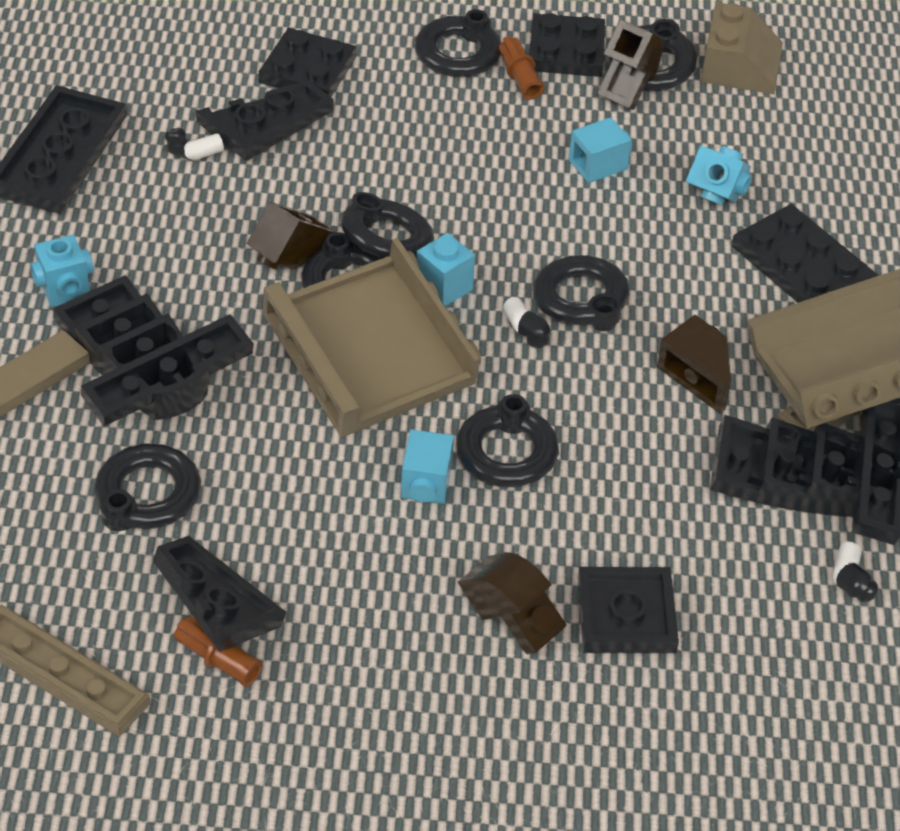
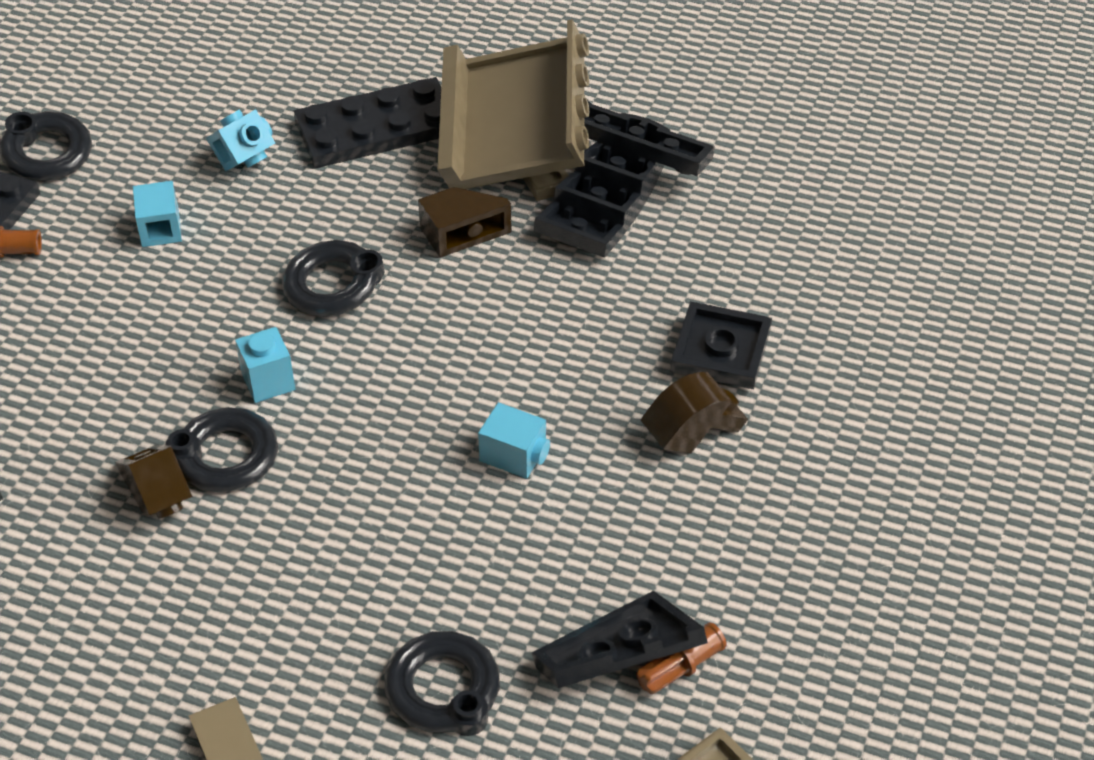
camera: 70 degrees left, 0 degrees up
(61, 269) = (101, 695): medium azure brick -> none
(144, 354) = (261, 643): black slope -> none
(367, 209) = (143, 411): black piece -> none
(373, 341) = (330, 443): dark tan panel -> none
(513, 417) = (464, 369): black piece -> none
(527, 323) = (362, 323): black arm -> none
(635, 59) = (63, 147): brick -> none
(741, 50) = (74, 87): dark tan slope -> none
(851, 576) = (723, 200): black arm -> none

